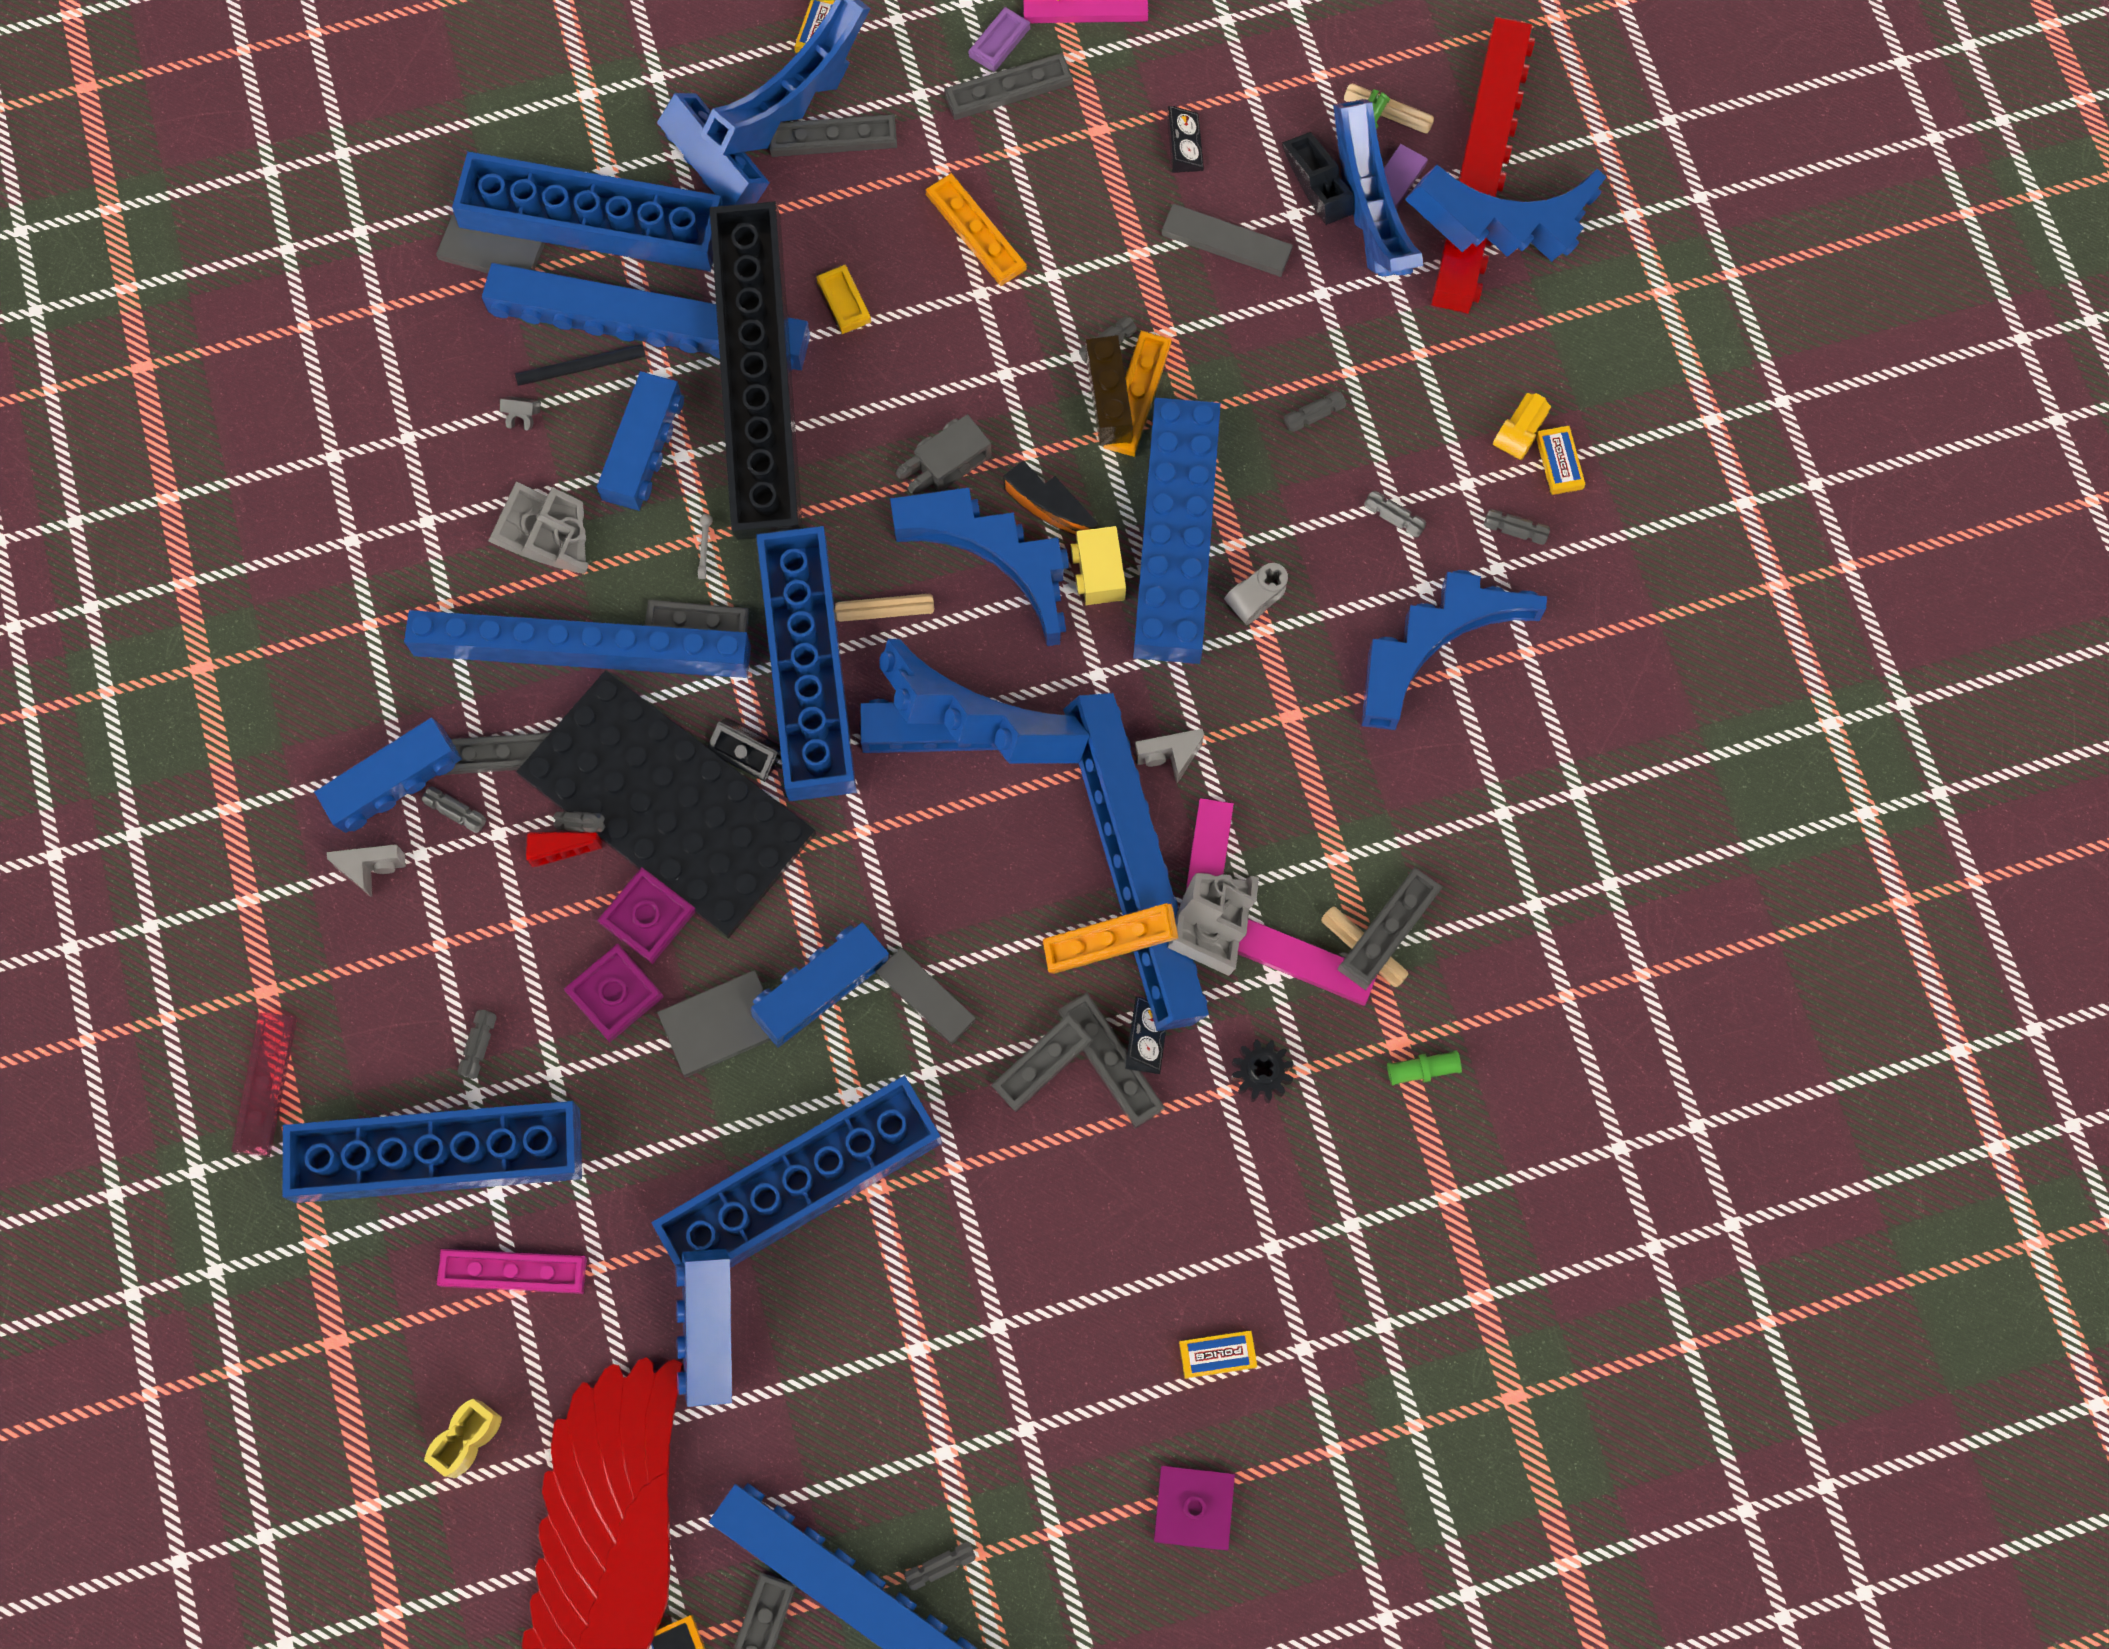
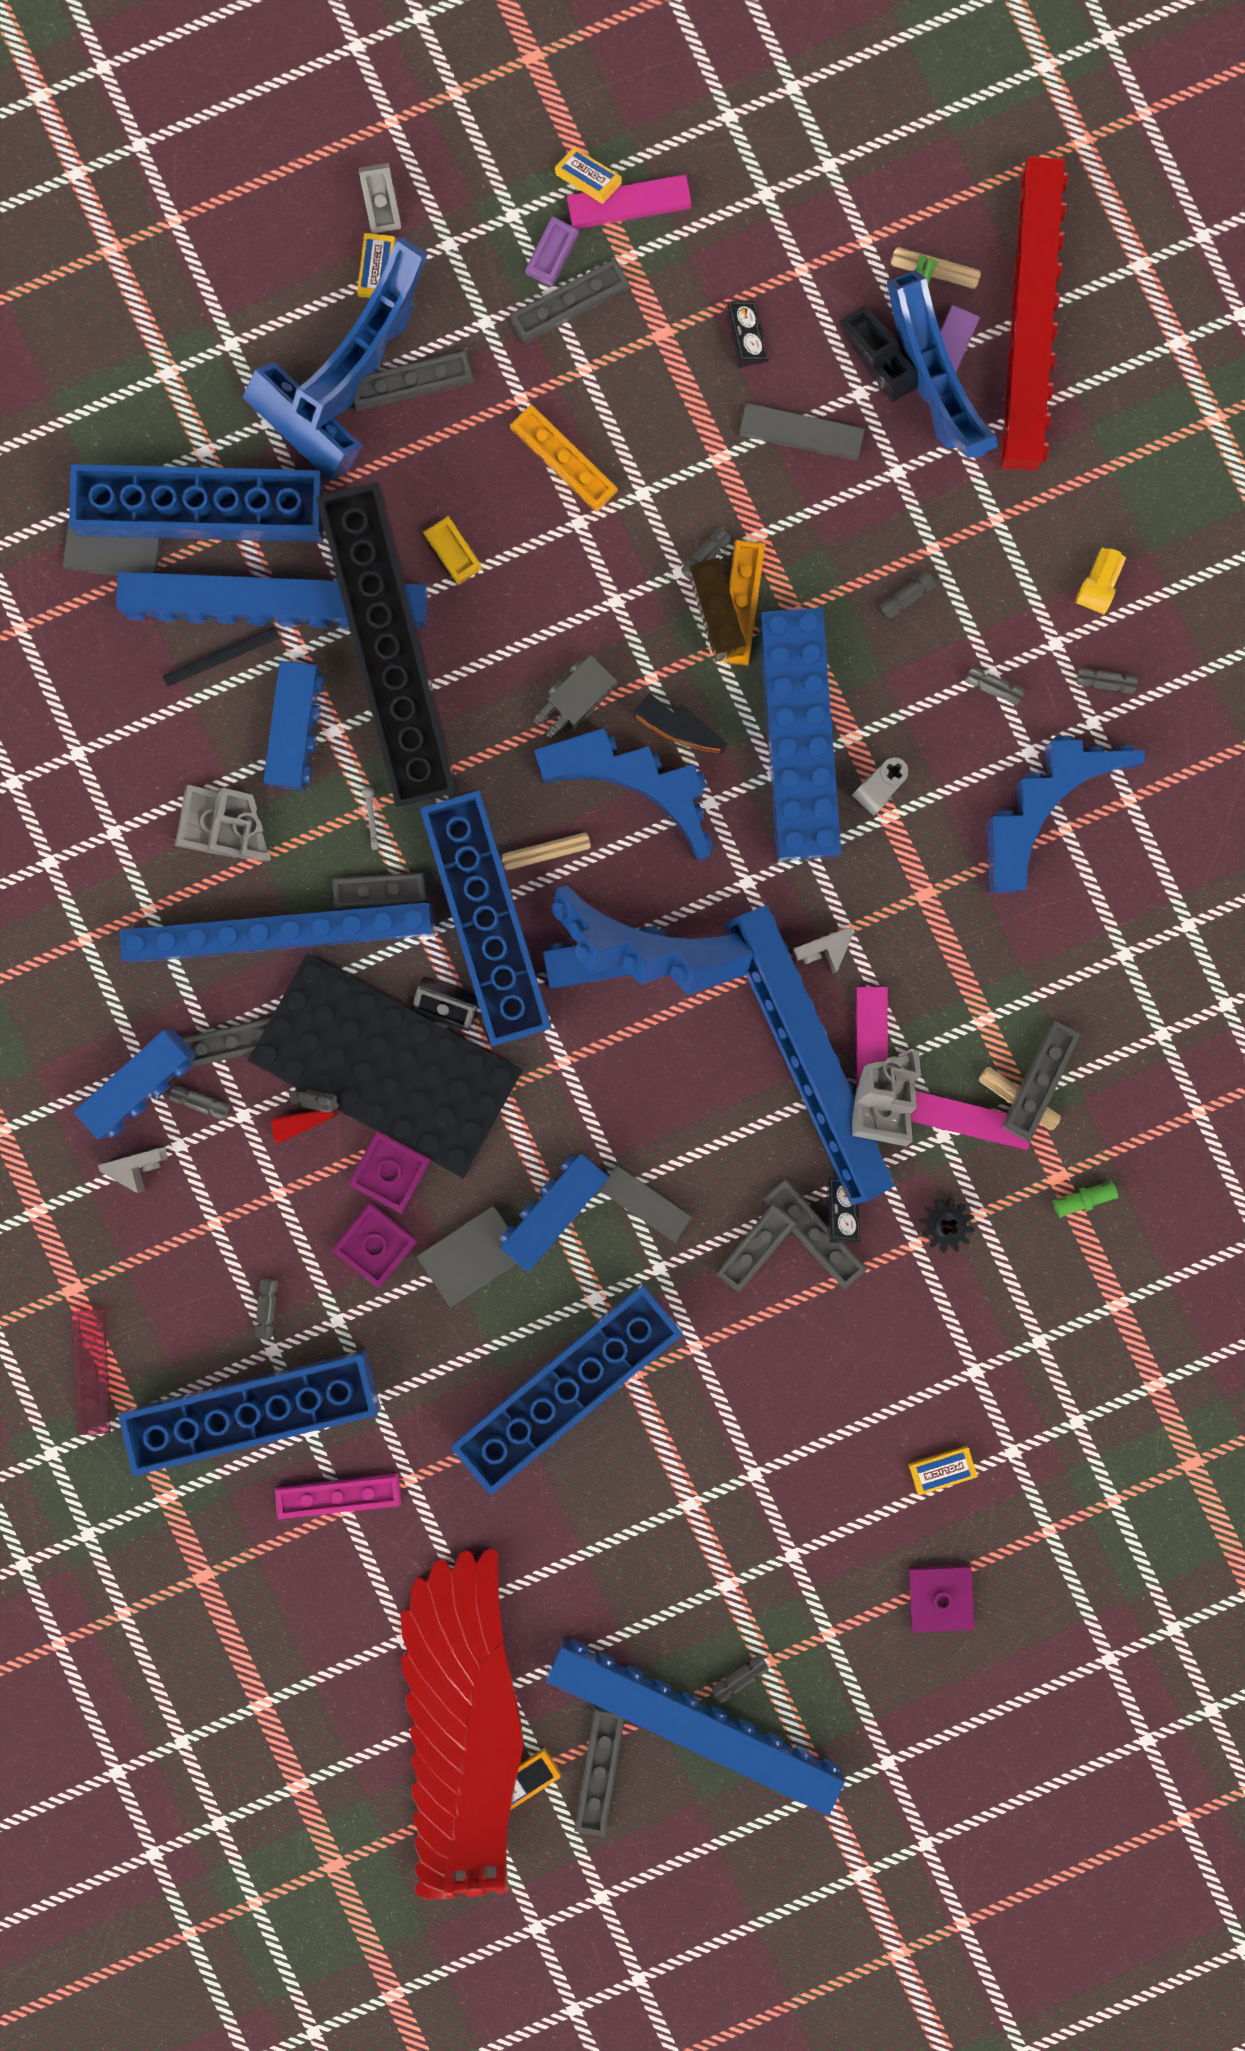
camera: 10 degrees left, 15 degrees up
(457, 1448) = (329, 1645): light yellow brick -> none
(520, 407) = (175, 709): tile -> none
(706, 1327) = (514, 1527): brick -> none
(1099, 565) = (734, 781): light yellow brick -> none
(1110, 938) = (800, 1133): light orange tile -> none
(1472, 216) = (1033, 382): blue arch -> none
(1560, 460) = (1139, 607): tile -> none

